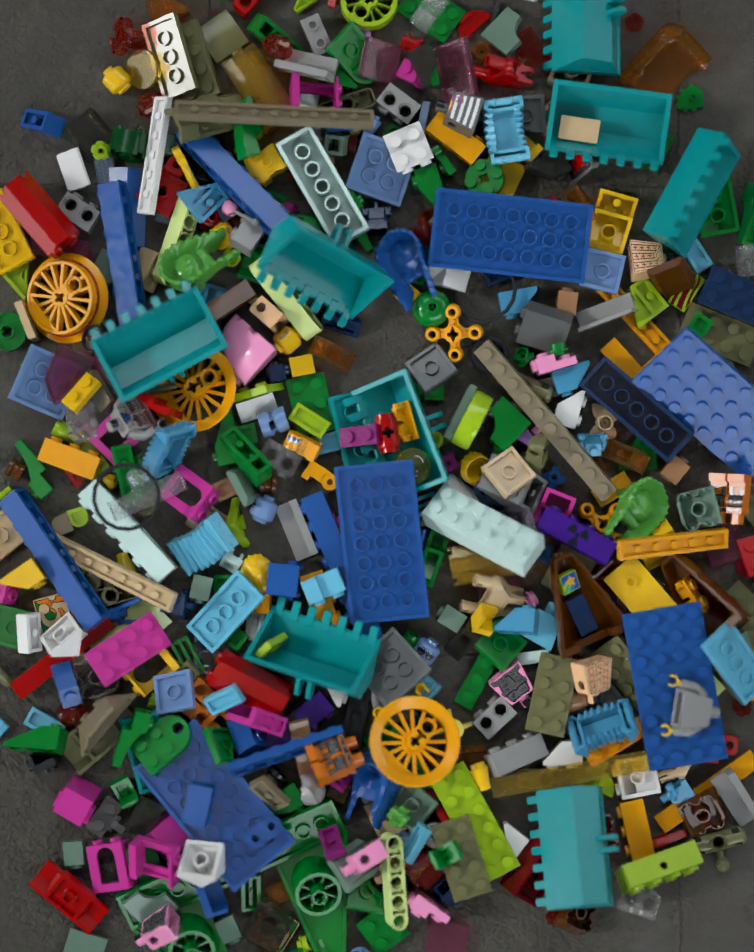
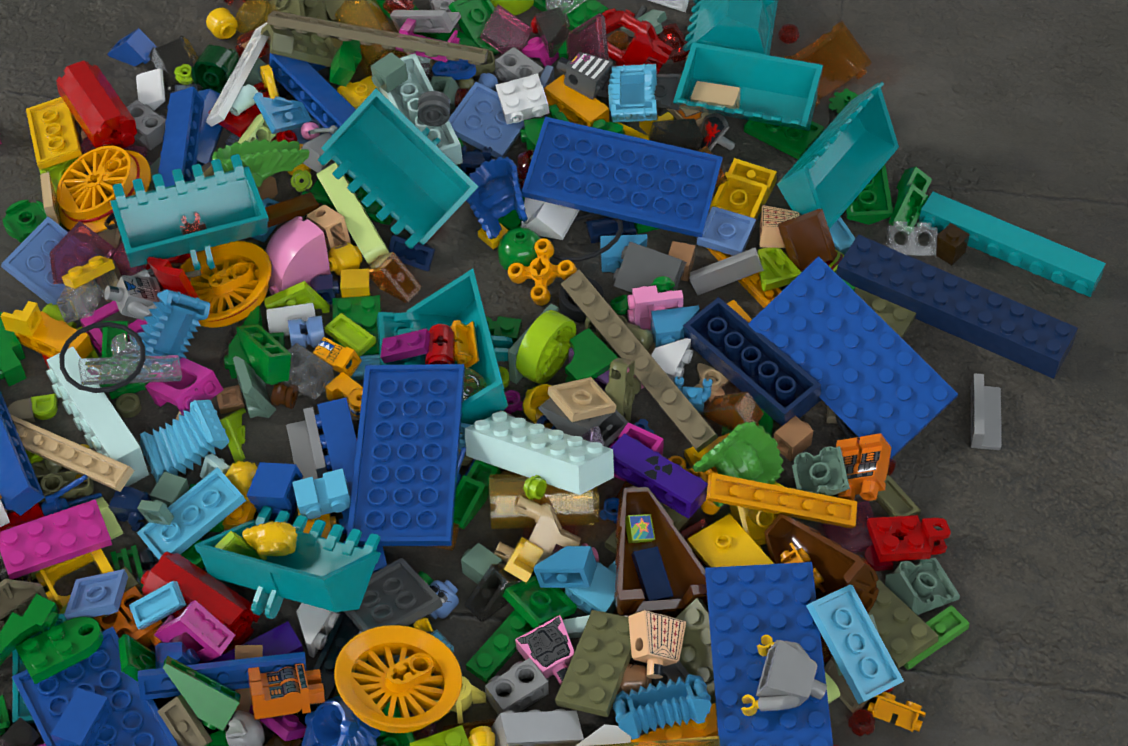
camera: 15 degrees right, 35 degrees down
(44, 454) = (23, 321): none -> yellow panel
(161, 348) = (192, 227): none -> clear red tile
(166, 182) = (244, 100): none -> light aqua cone
(199, 615) = (155, 512): none -> sand green plate
(263, 509) = (271, 420): medium blue head -> none
(279, 773) = (206, 697): none -> green slope
(292, 159) = (389, 72): none -> sand green brick
(294, 633) = (271, 539): none -> yellow hair
(341, 199) = (433, 108): none -> dark grey wheel
(431, 368) = (509, 303): dark grey tile -> none
(486, 567) = (535, 487): none -> lime plate

